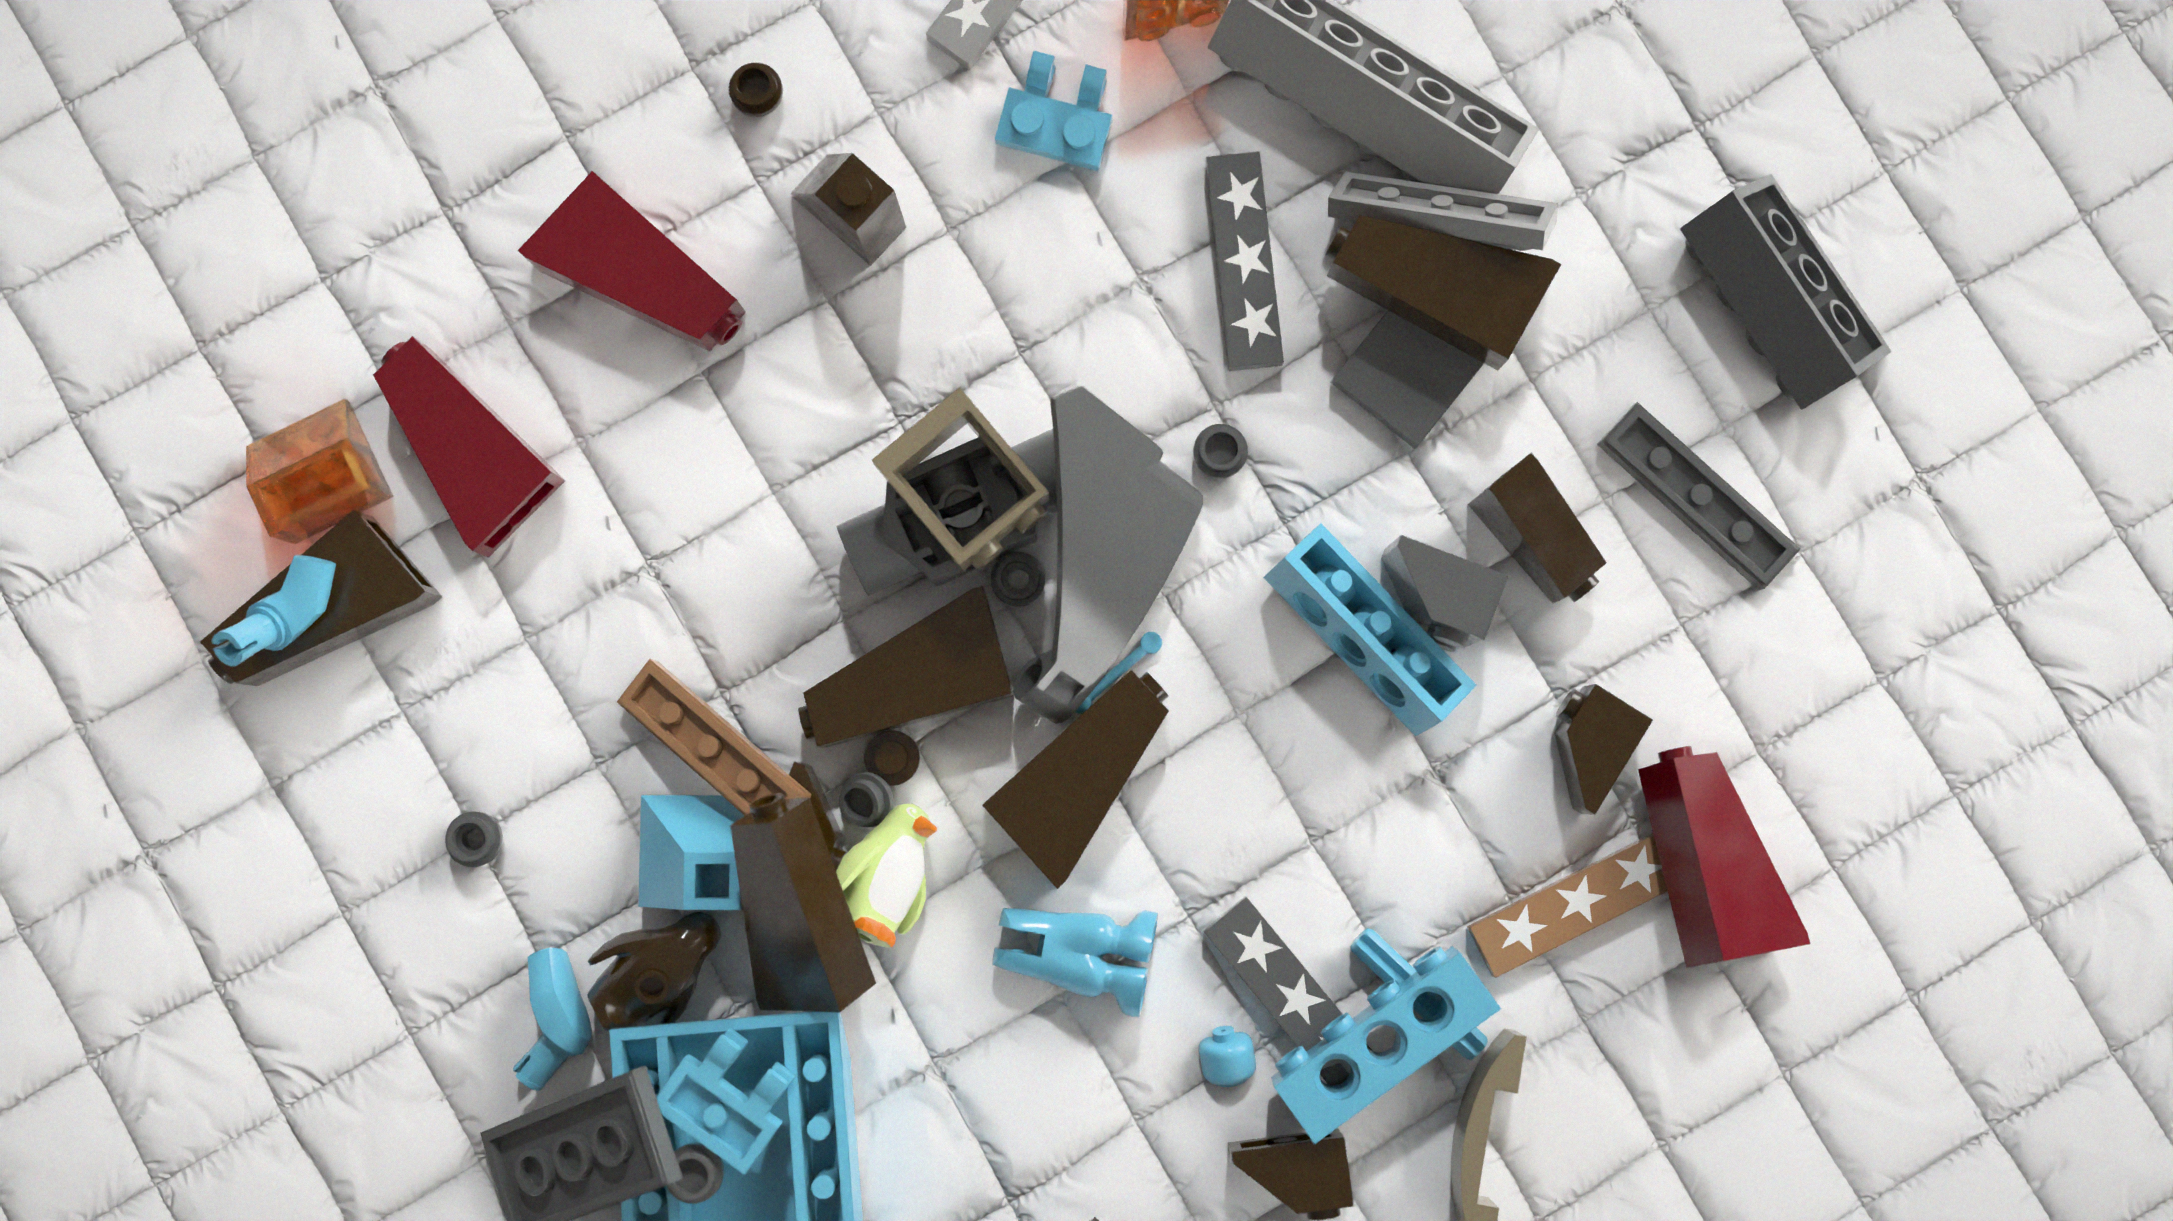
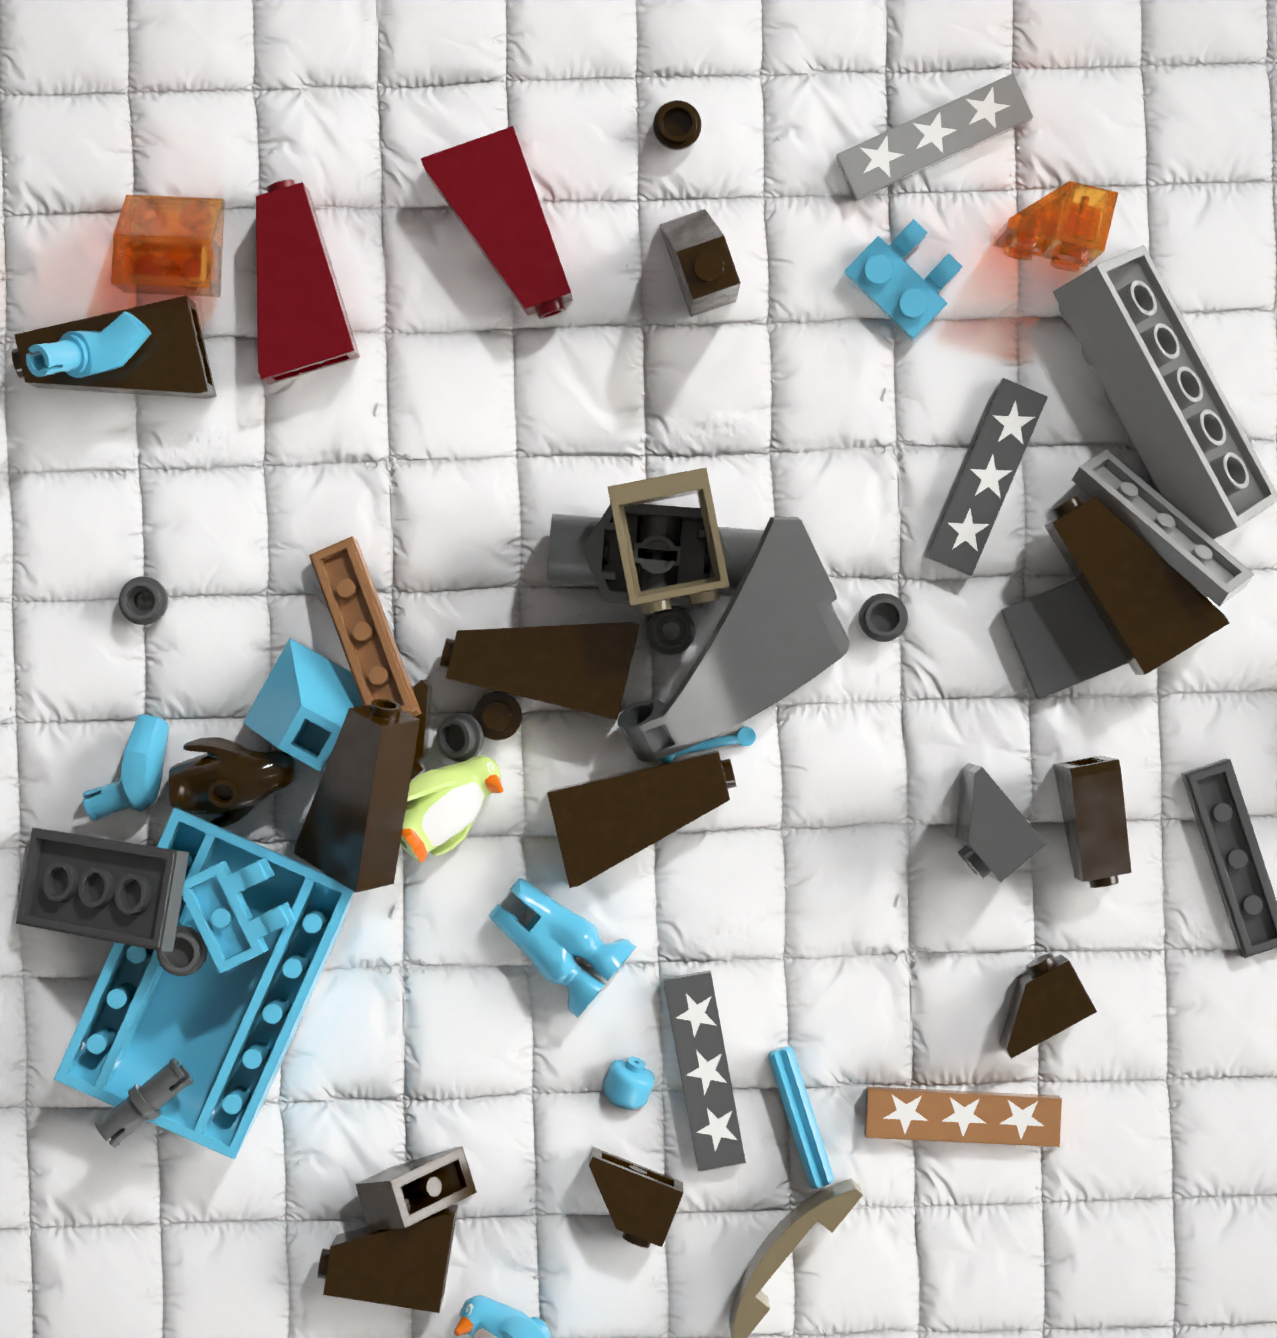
camera: 25 degrees right, 5 degrees up
(1325, 1107) = (681, 1162): medium azure brick -> none
(1370, 631) = (918, 823): medium azure brick -> none
(1714, 863) = (1082, 1145): dark red slope -> none

